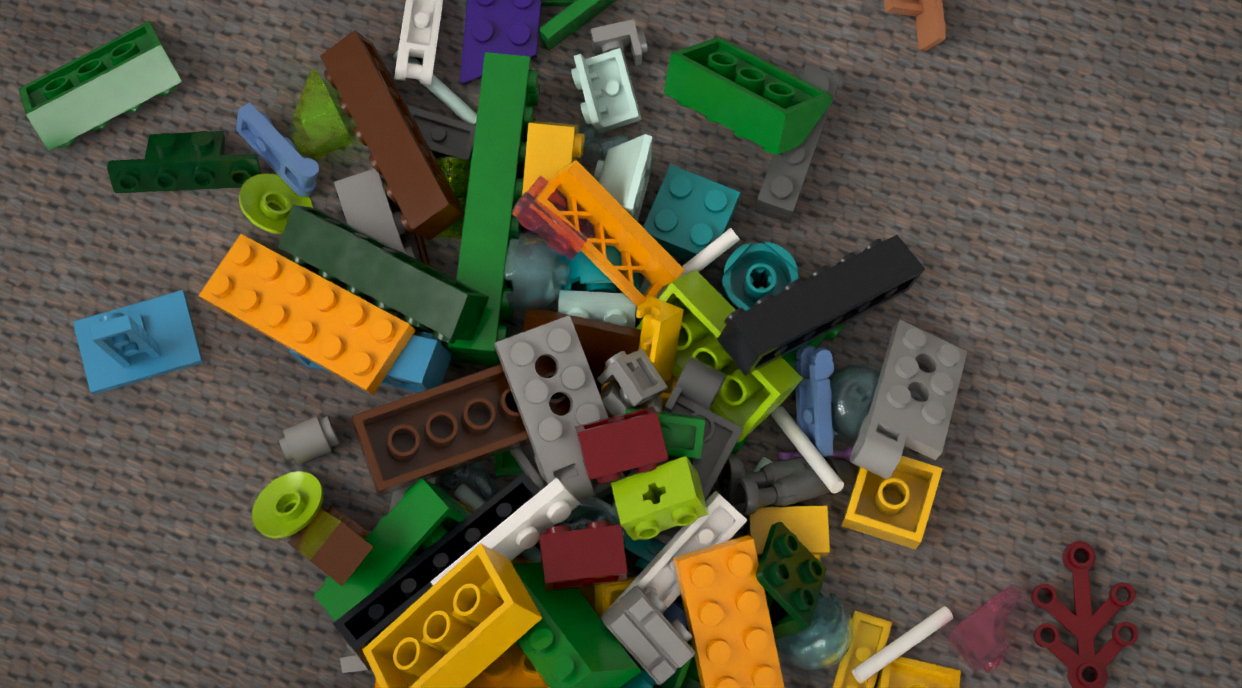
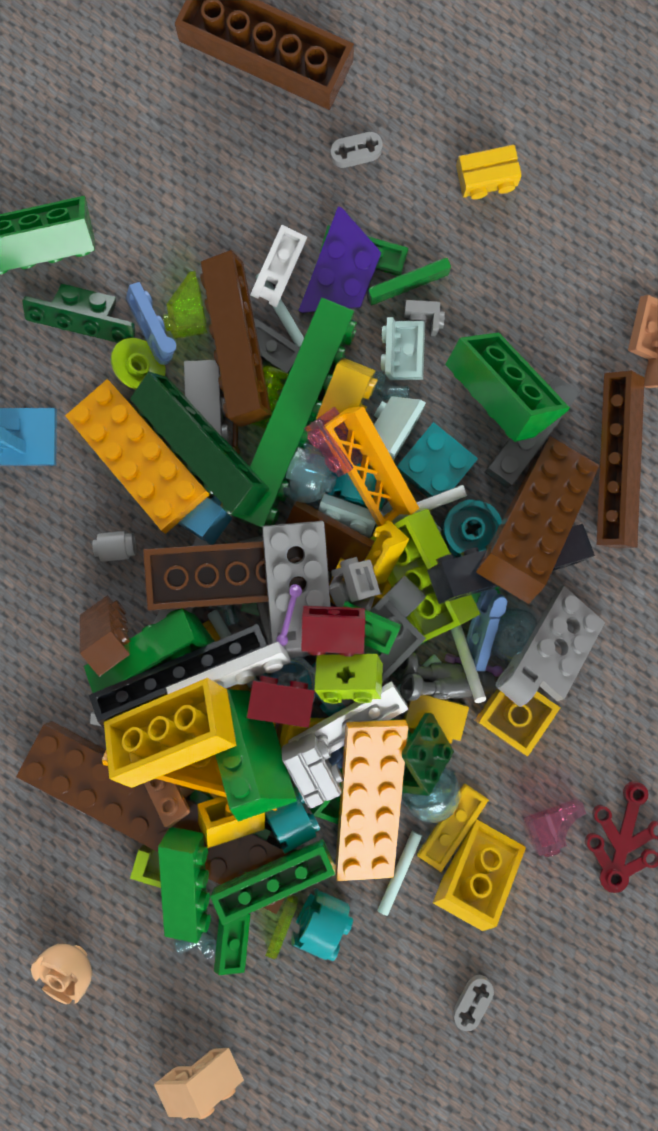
camera: 15 degrees right, 10 degrees up
(287, 504) = (86, 589): lime dish -> none
(559, 410) = (295, 591): none -> medium lavender hinge
(837, 240) = (538, 520): none -> reddish brown brick
(902, 644) = (491, 818): white bar -> none
(919, 145) = (620, 460): none -> reddish brown brick

